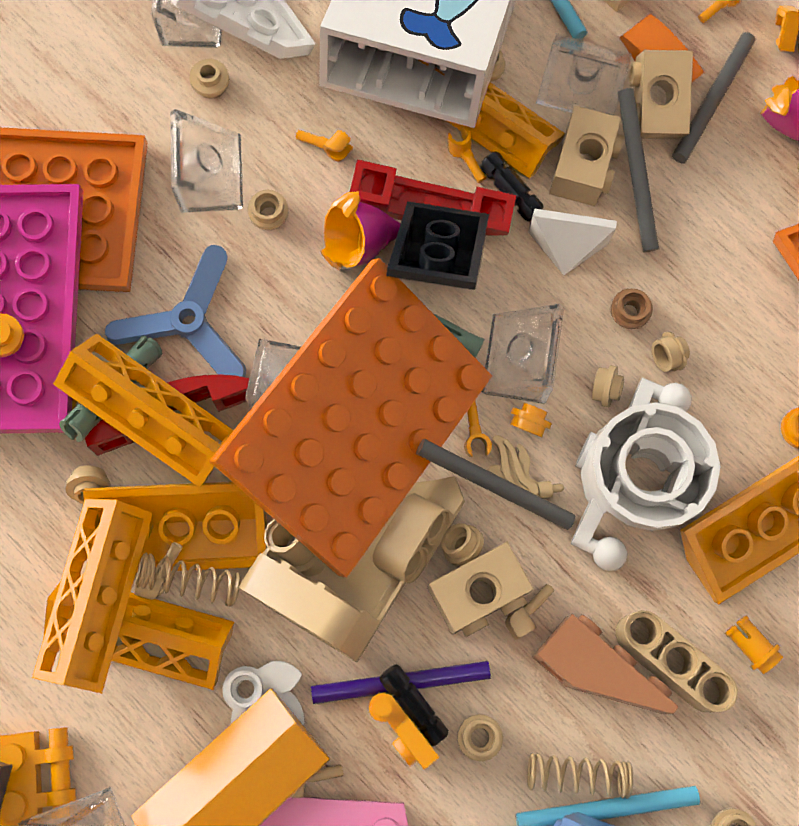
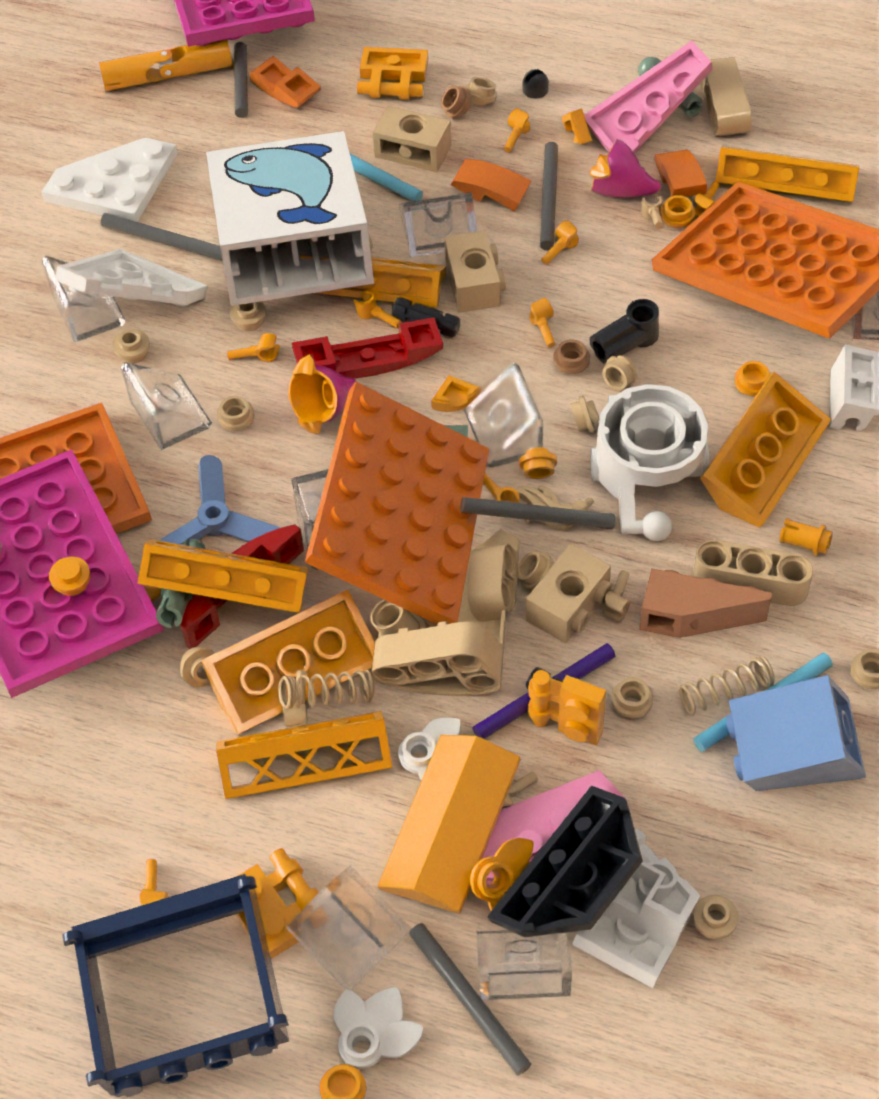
camera: 20 degrees left, 20 degrees down
(98, 595) = (263, 713): light orange fence -> none
(338, 105) = (248, 316): none -> tan plate
(439, 245) = (399, 367): black slope -> none
(493, 293) = (454, 395): none -> light orange tile
(570, 237) = (492, 329): white slope -> none
(628, 237) = (540, 312): none -> light orange hand
(638, 170) = (519, 260): dark grey bar -> none
(673, 74) = (507, 186): tan brick -> none
(700, 309) = (632, 330): none -> black piece
(706, 160) = (567, 238): none -> light orange hand

